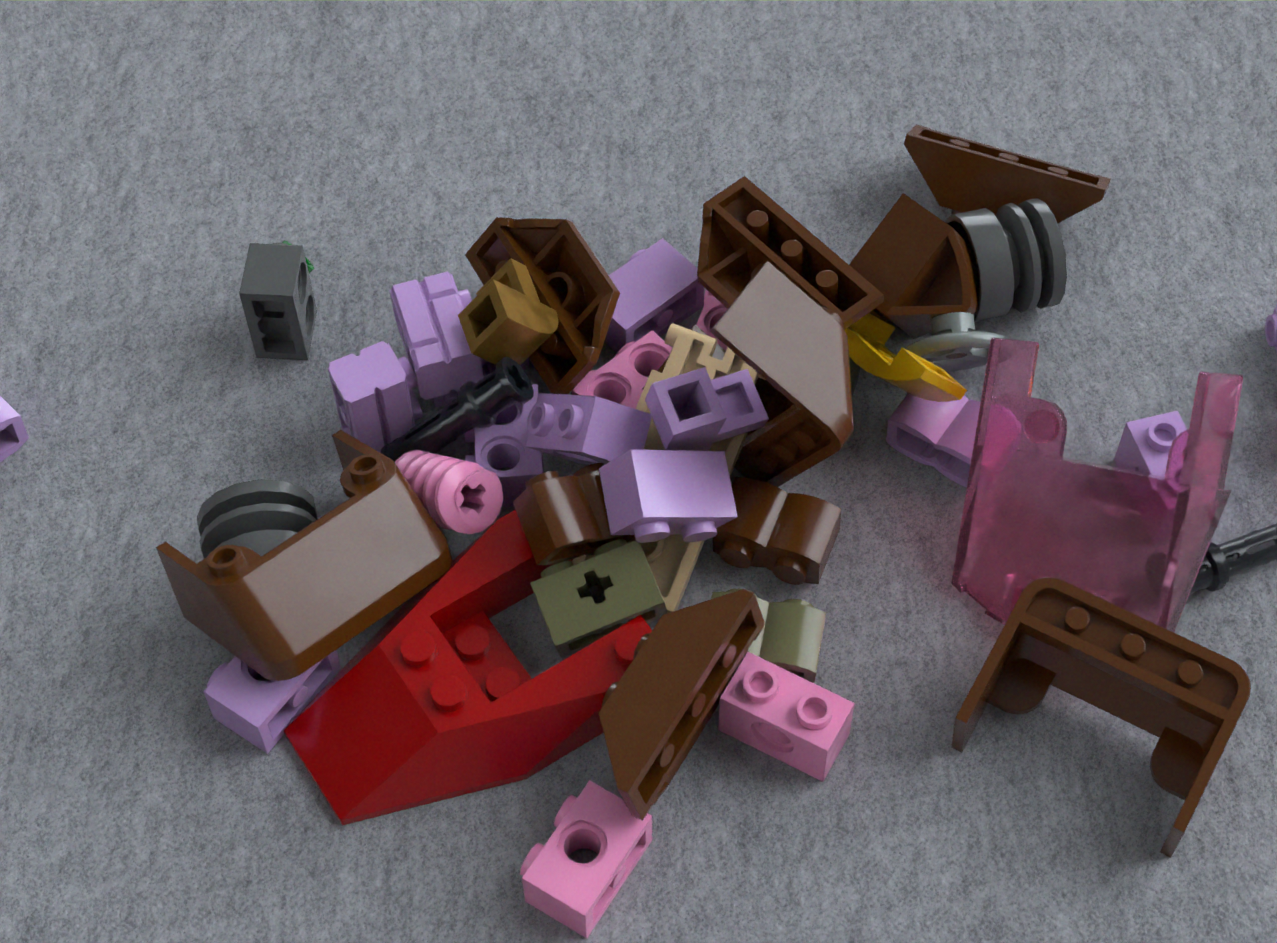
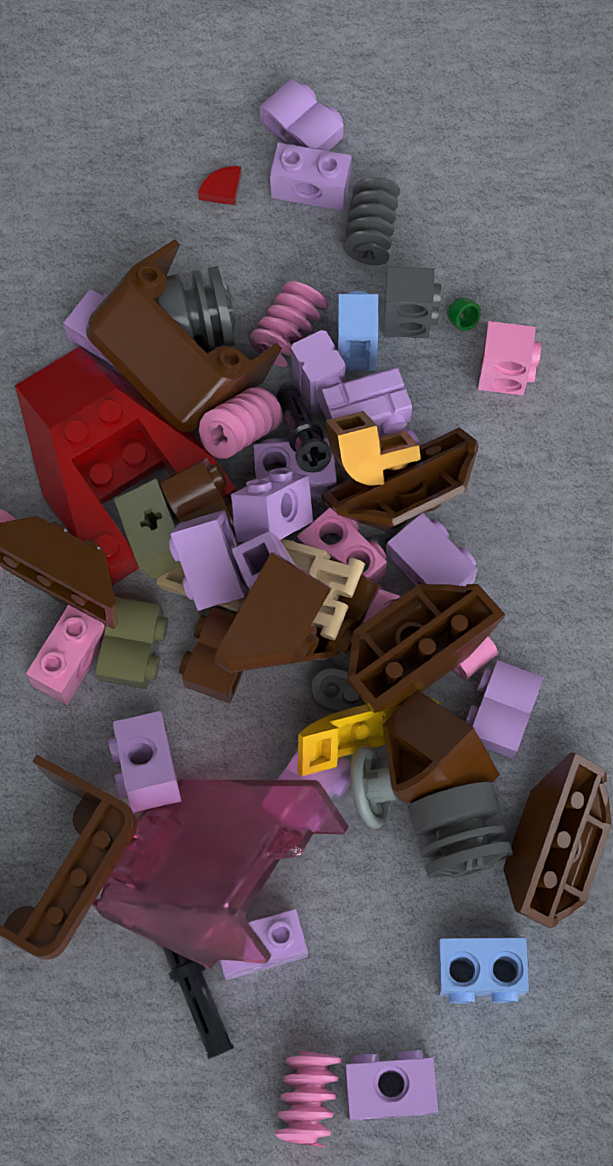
camera: 90 degrees right, 15 degrees up
(43, 544) = (221, 186): none -> red tile
(54, 424) = (310, 176): none -> lavender brick
(139, 356) = (371, 220): none -> dark grey piece
(283, 449) = (287, 318): none -> bright pink piece
(304, 346) = (358, 330): none -> light blue brick
(372, 201) = (508, 358): none -> bright pink brick
(836, 219) = (505, 707): none -> lavender brick
(910, 597) = (149, 783): none -> lavender brick
(1159, 259) = (481, 955): none -> light blue brick

